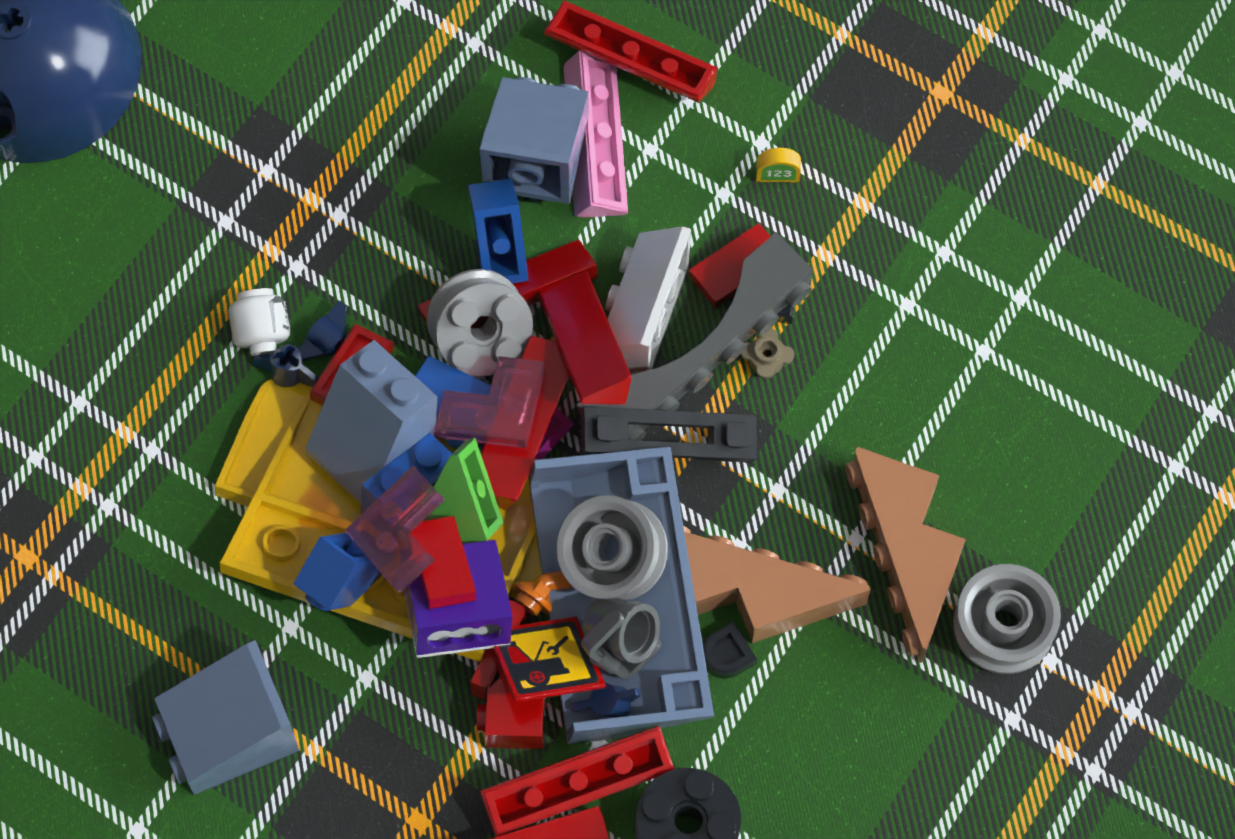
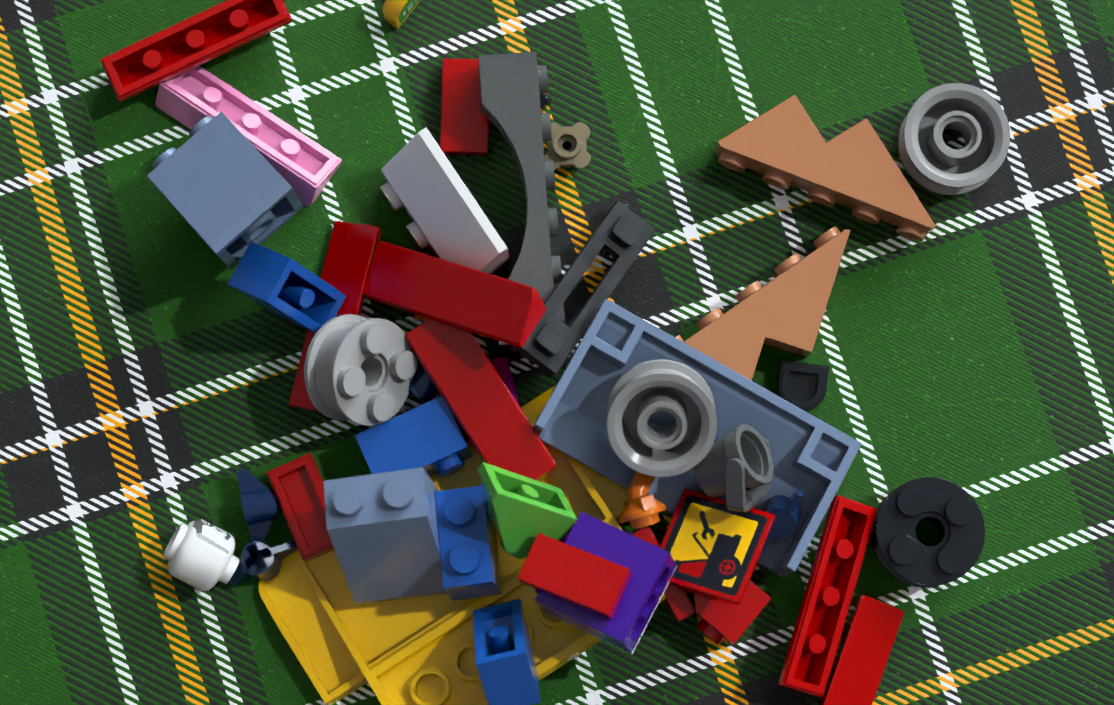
camera: 50 degrees left, 15 degrees up
(387, 524) = (508, 601): clear pink tile -> none
(501, 416) = (467, 418): clear pink tile -> none

